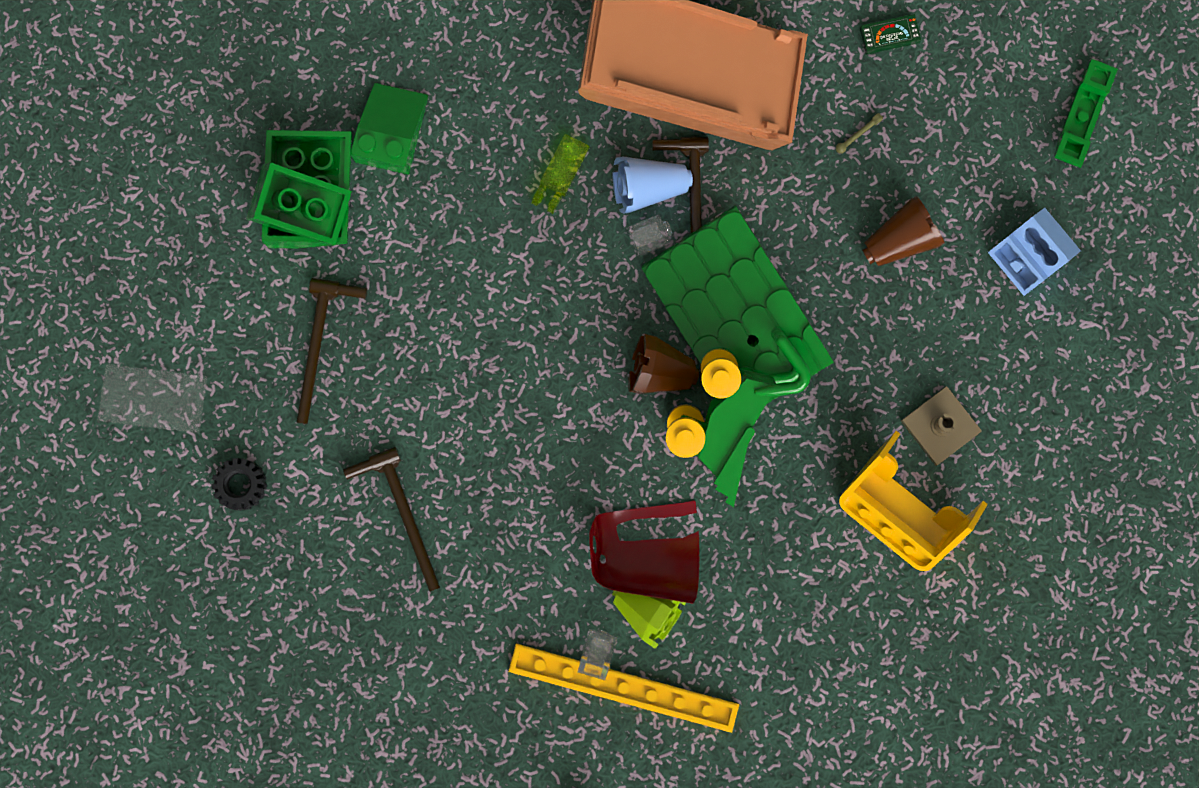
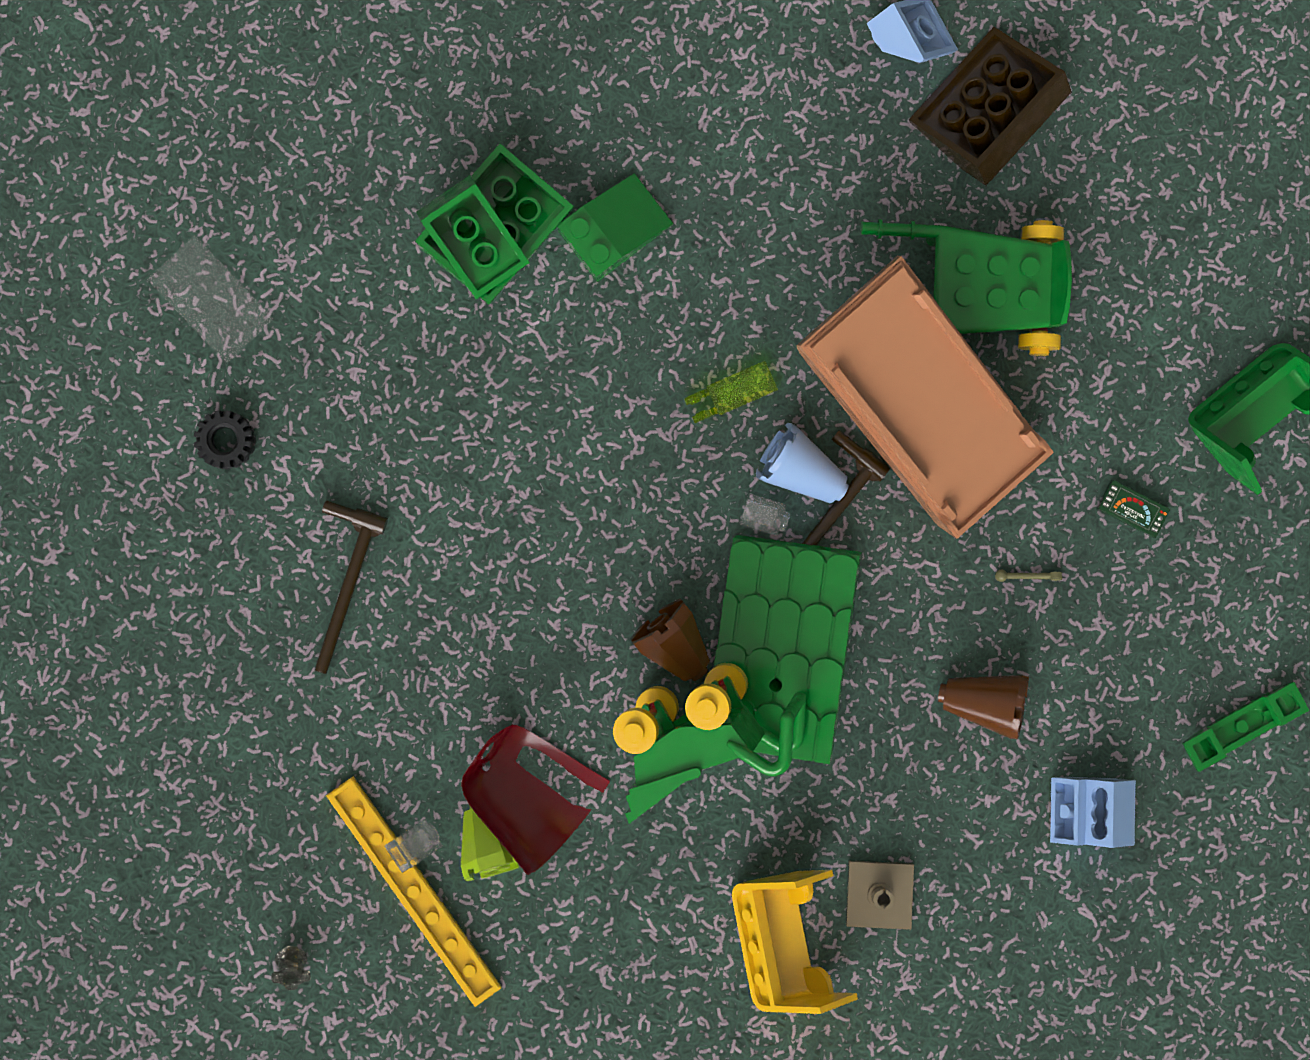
camera: 35 degrees right, 5 degrees up
(324, 291) = (436, 327): dark brown bar -> none

